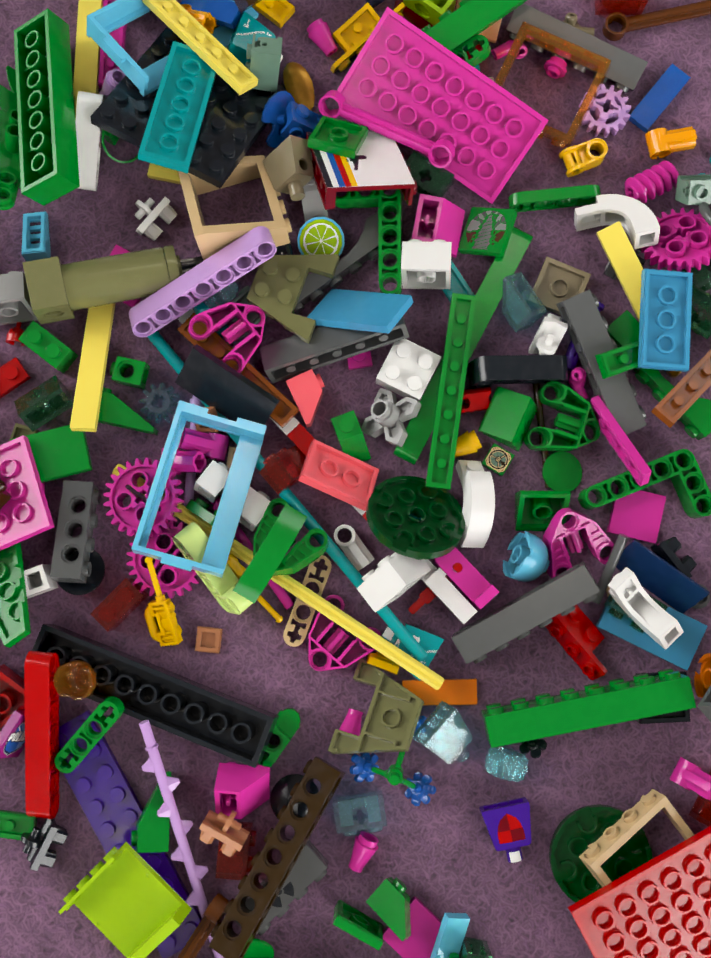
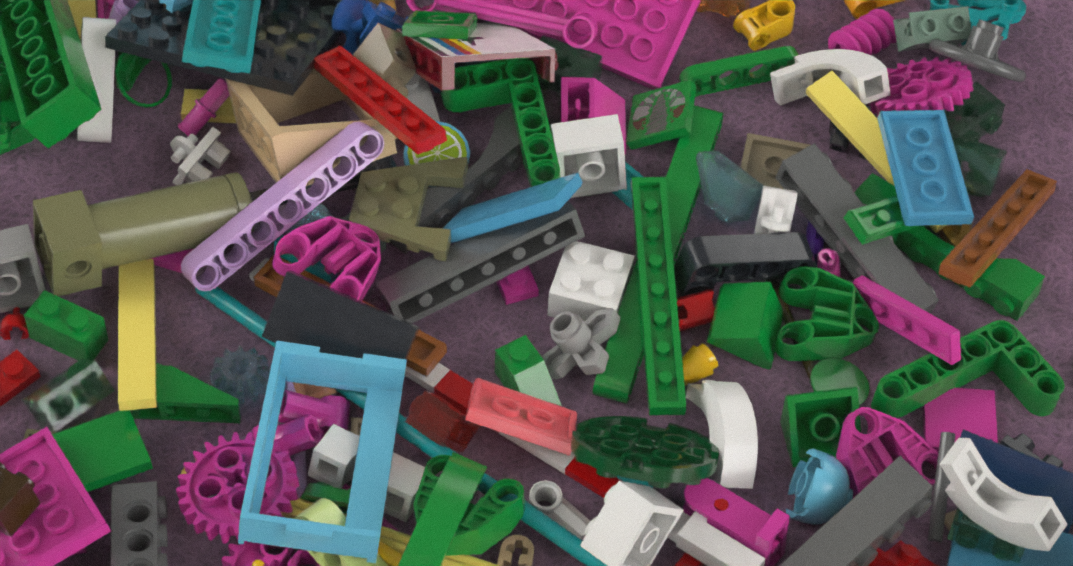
camera: 15 degrees left, 30 degrees down
(39, 250) = (25, 184): medium azure slope -> none
(140, 374) = (202, 347): green brick -> none
(159, 180) = (205, 108): none -> dark pink axle
(280, 206) = (380, 100): none -> red plate
(307, 394) = (454, 327): coral slope -> none
(497, 459) = (748, 376): tile -> none

